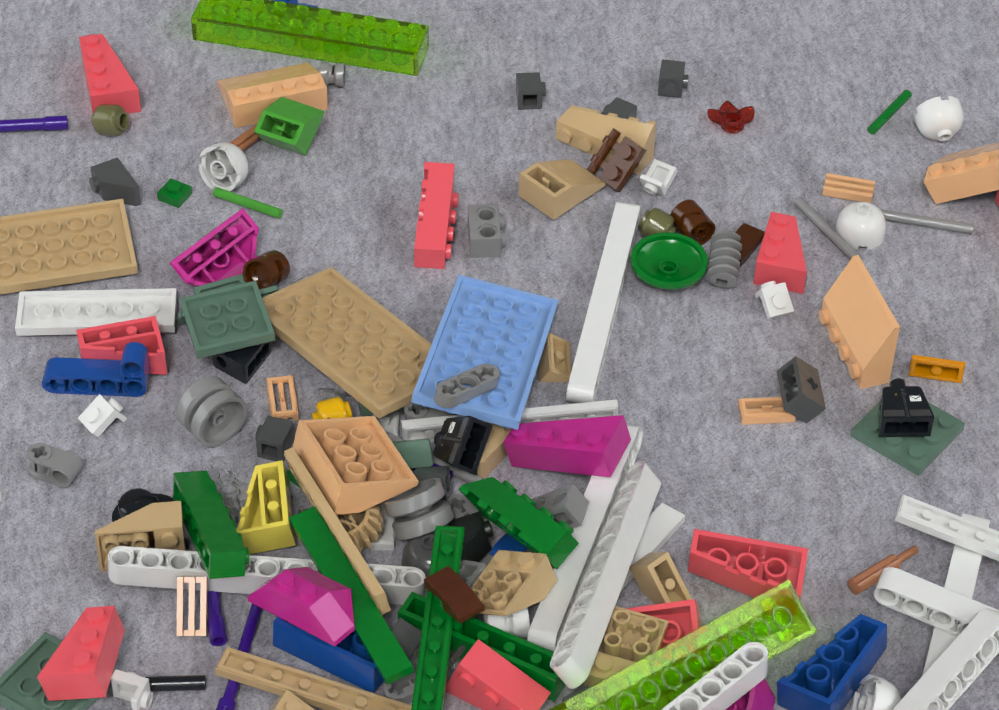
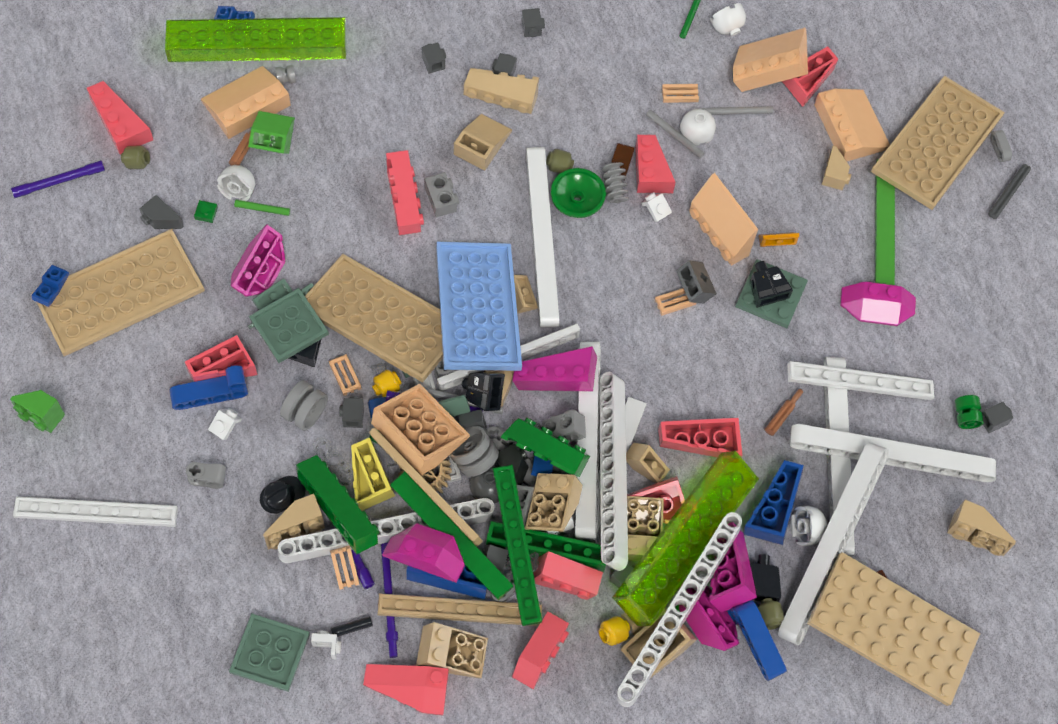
camera: 20 degrees left, 20 degrees up
(78, 309) = (187, 334): white plate -> none
(85, 657) = (290, 631): coral wedge -> none
(267, 269) = (299, 271): reddish brown wheel -> none
(451, 392) = (478, 340): light grey beam -> none
(455, 594) = (524, 523): copper slope -> none
(622, 163) = (520, 113): reddish brown plate -> none
(658, 178) = (548, 117): white bracket -> none
(692, 221) = (586, 155): reddish brown wheel -> none
(730, 117) = (581, 45): clear red plate -> none

